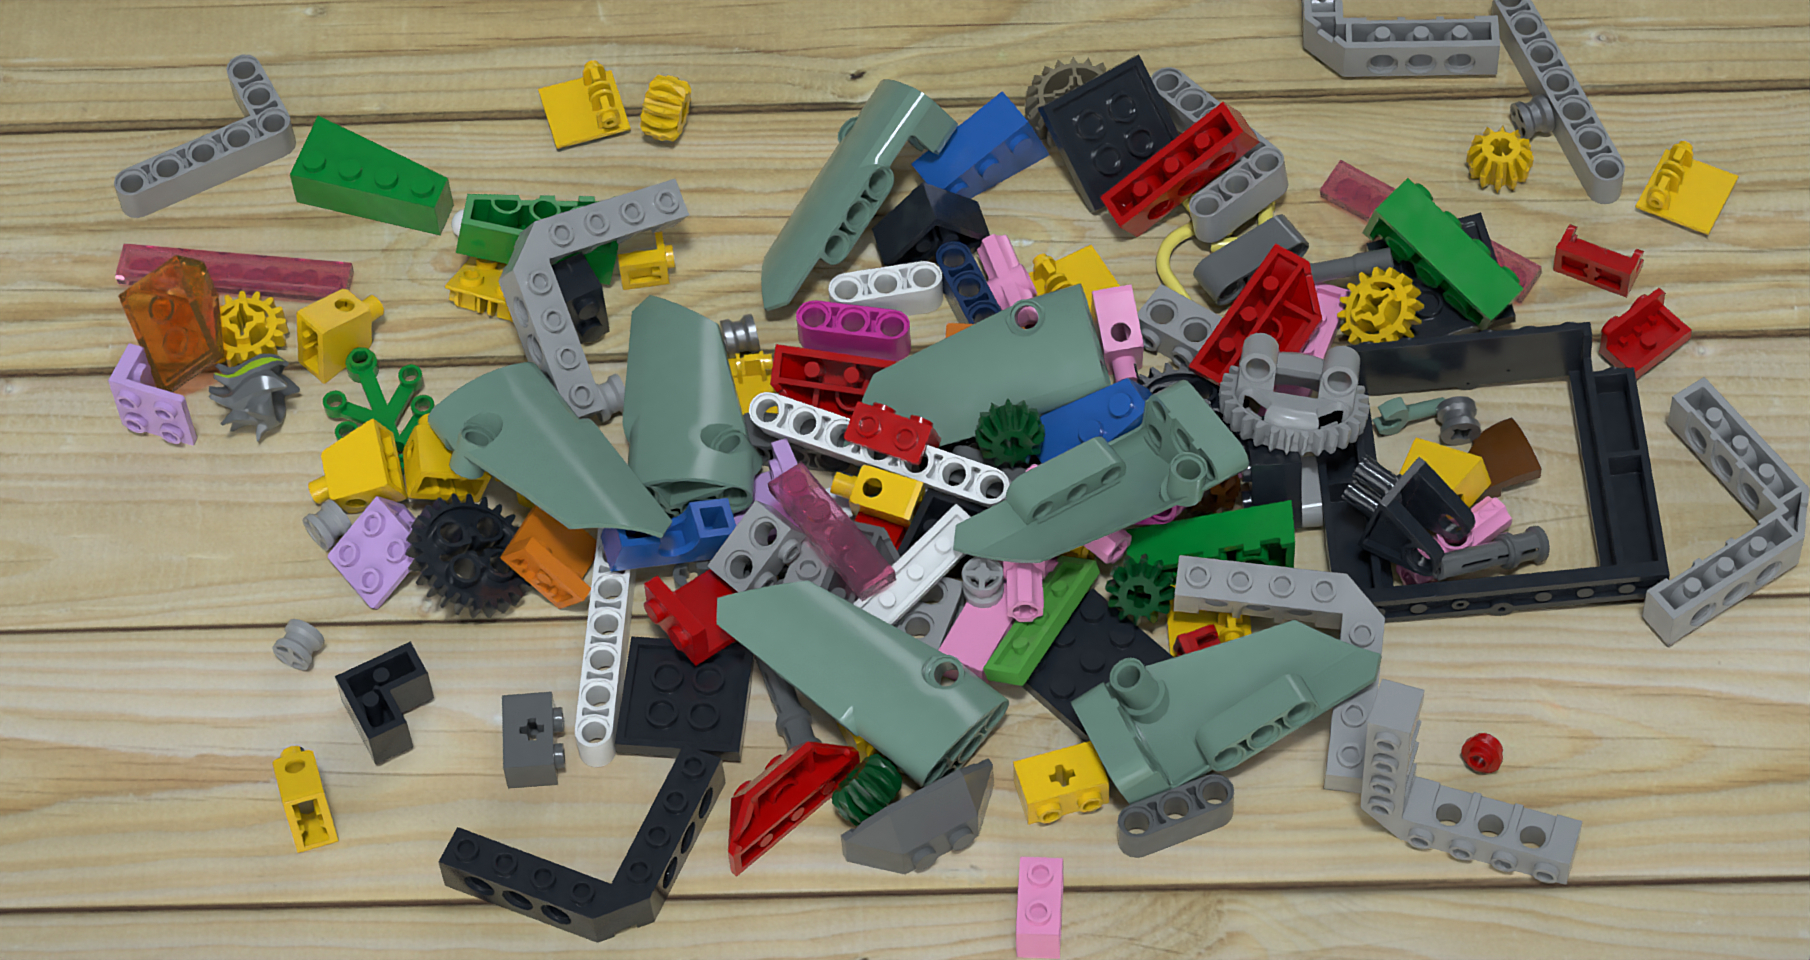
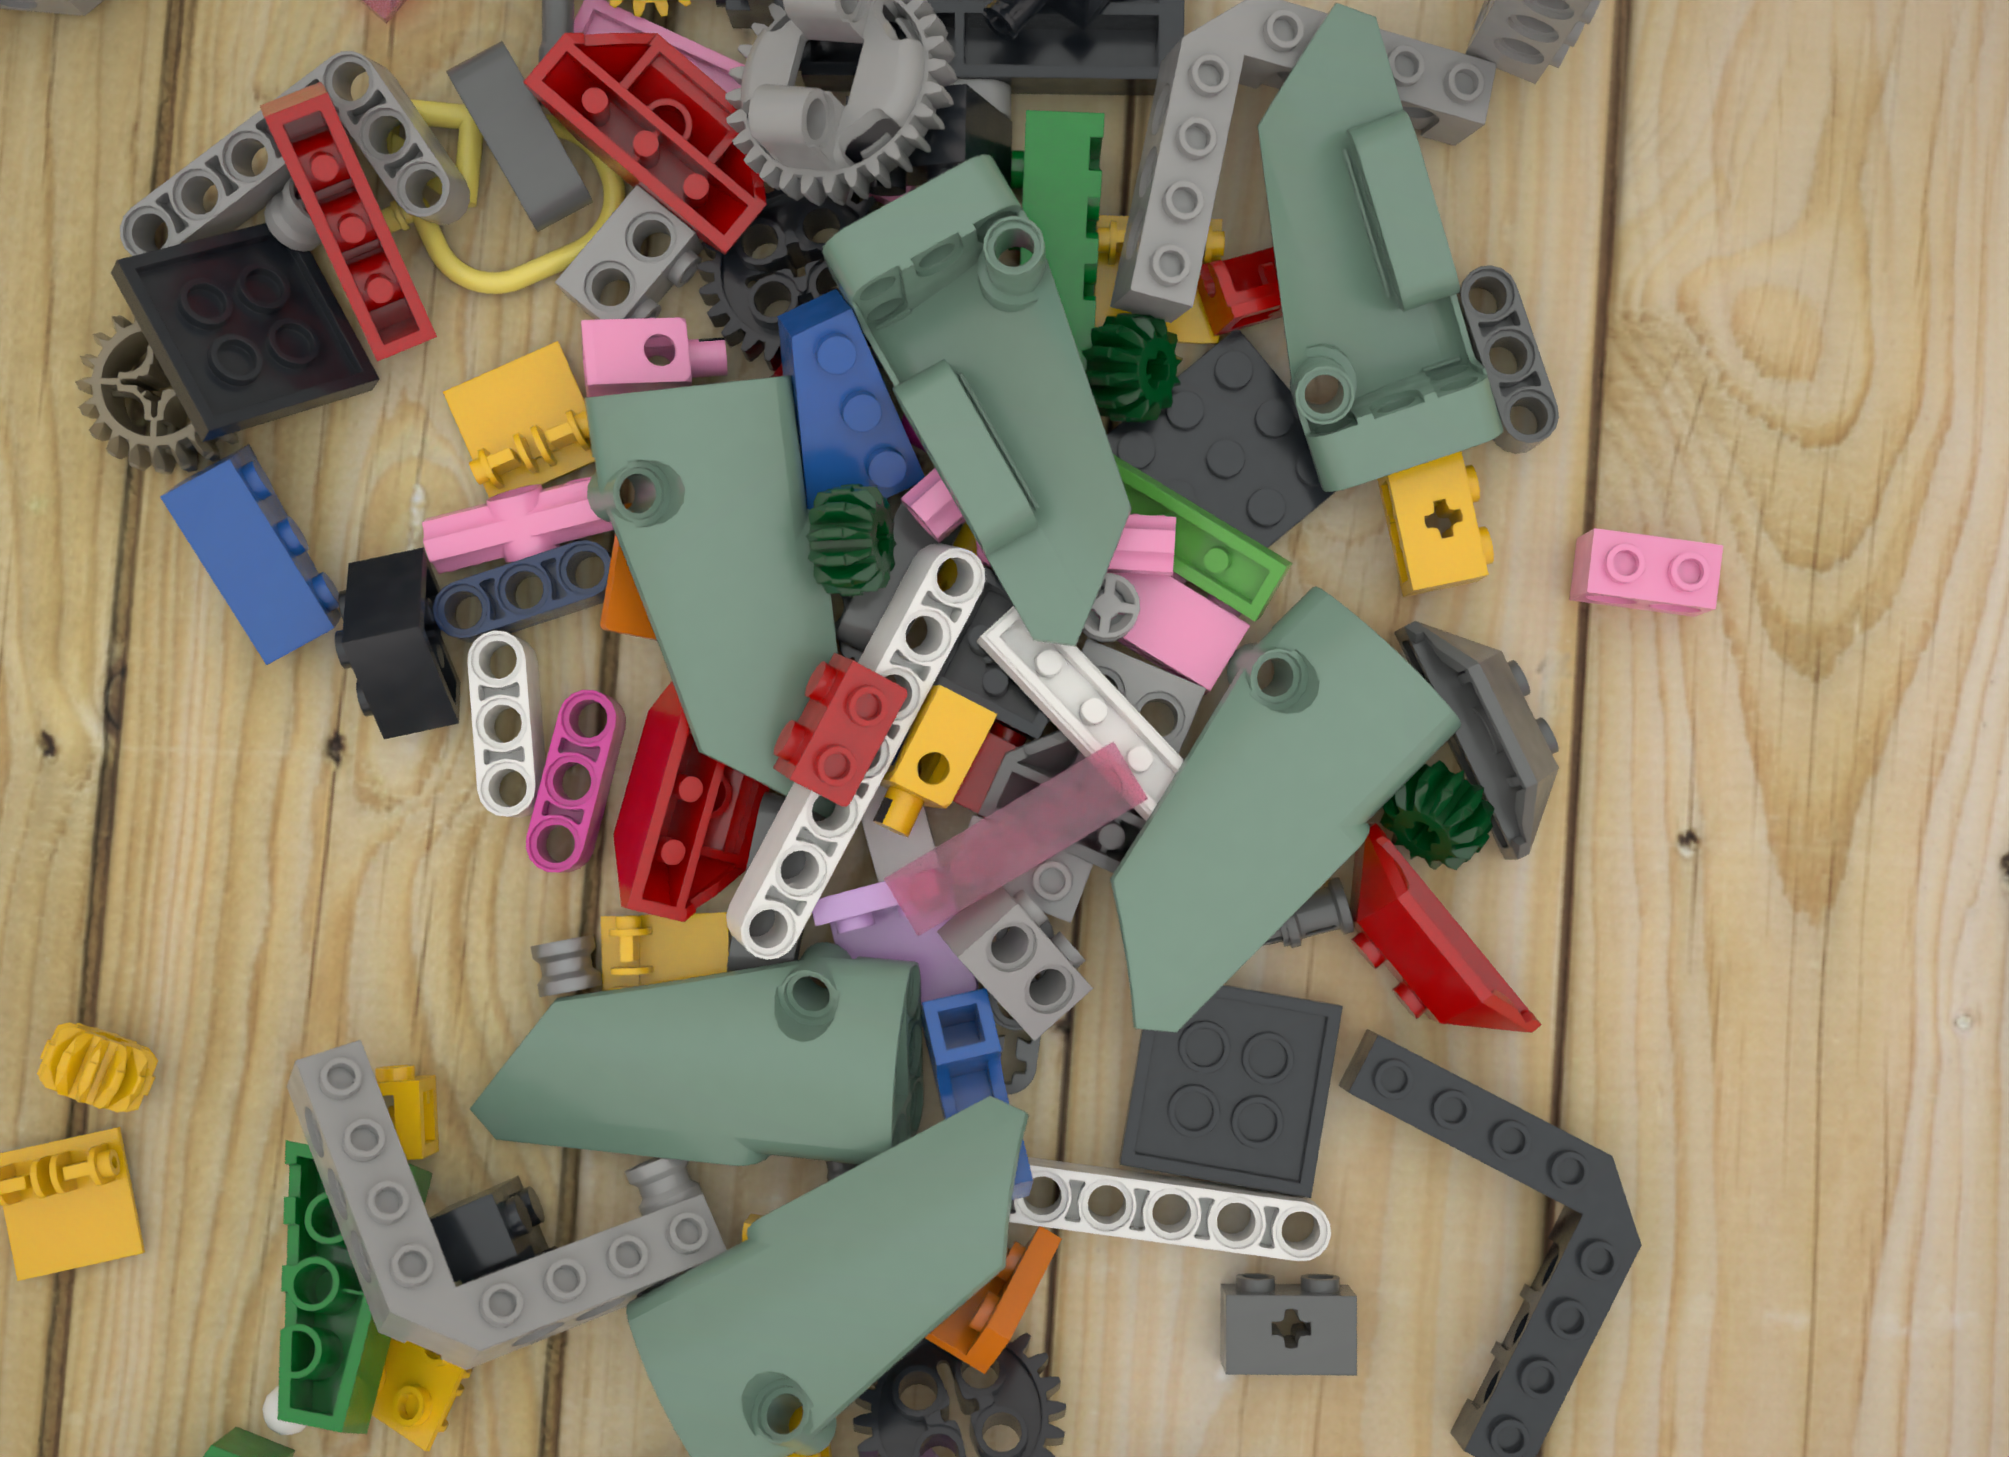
camera: 85 degrees left, 30 degrees up
(690, 614) = (1105, 1064): red bracket -> none
(851, 185) = (311, 769): sand green panel -> none

